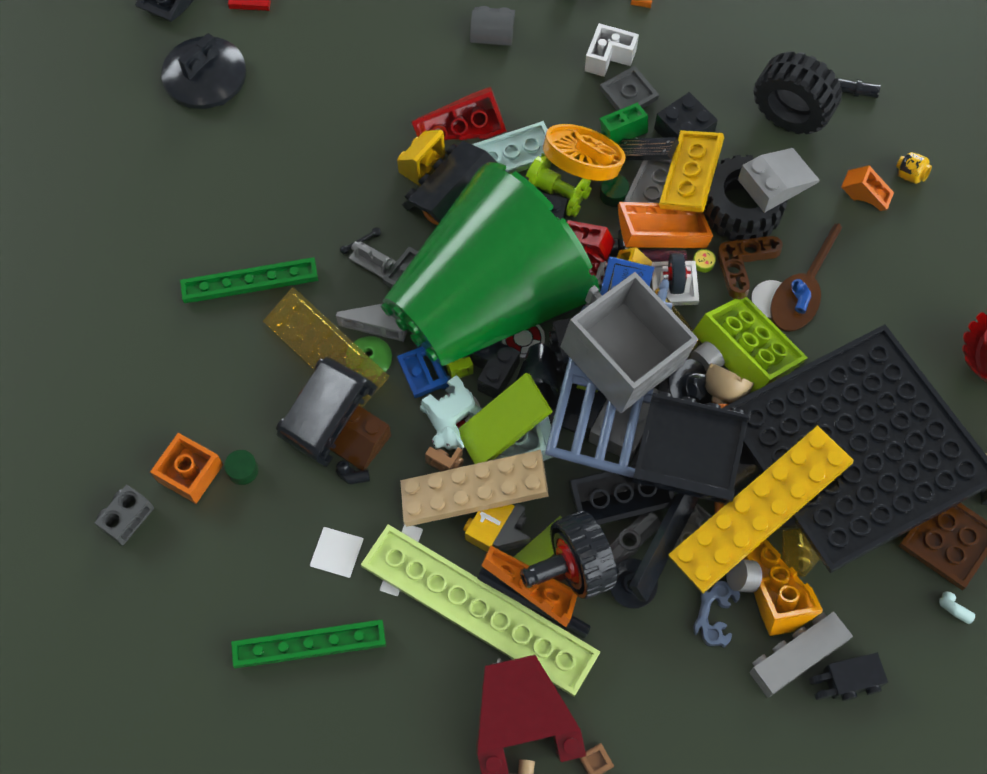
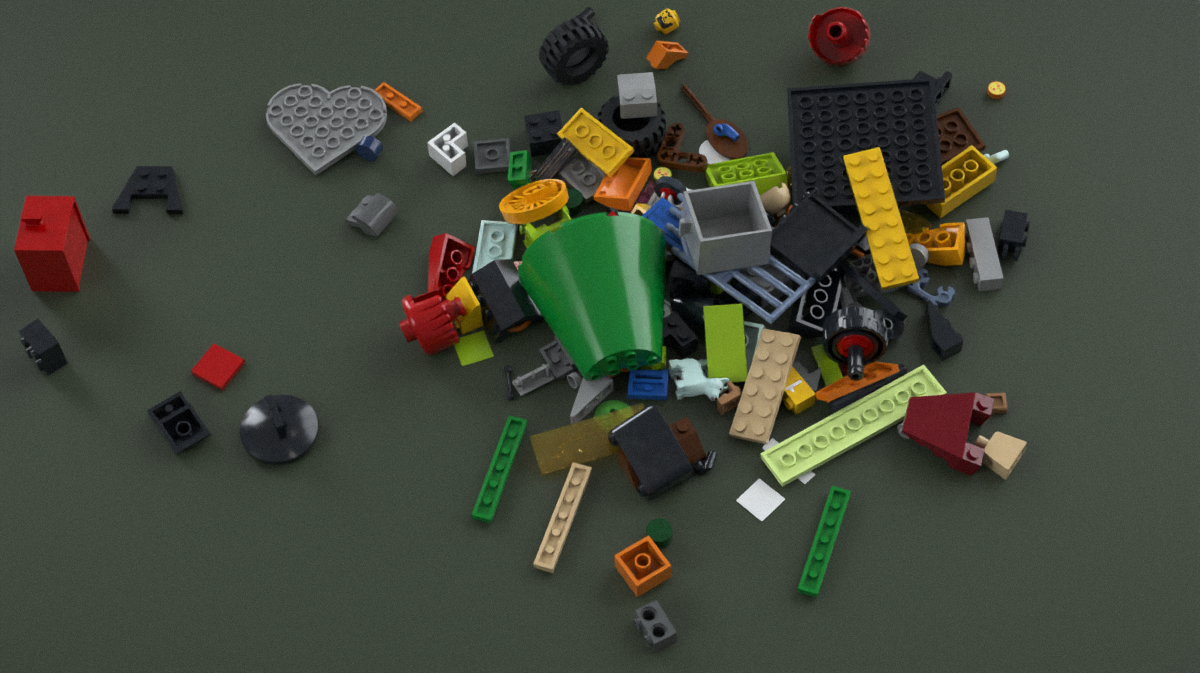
camera: 60 degrees left, 10 degrees down
(218, 365) = (562, 517): none -> tan plate
(379, 120) = (431, 321): none -> red piece
(386, 189) = (473, 348): none -> lime sticker
(652, 654) = (942, 336): none -> black slope
(892, 581) = (963, 179): none -> yellow brick

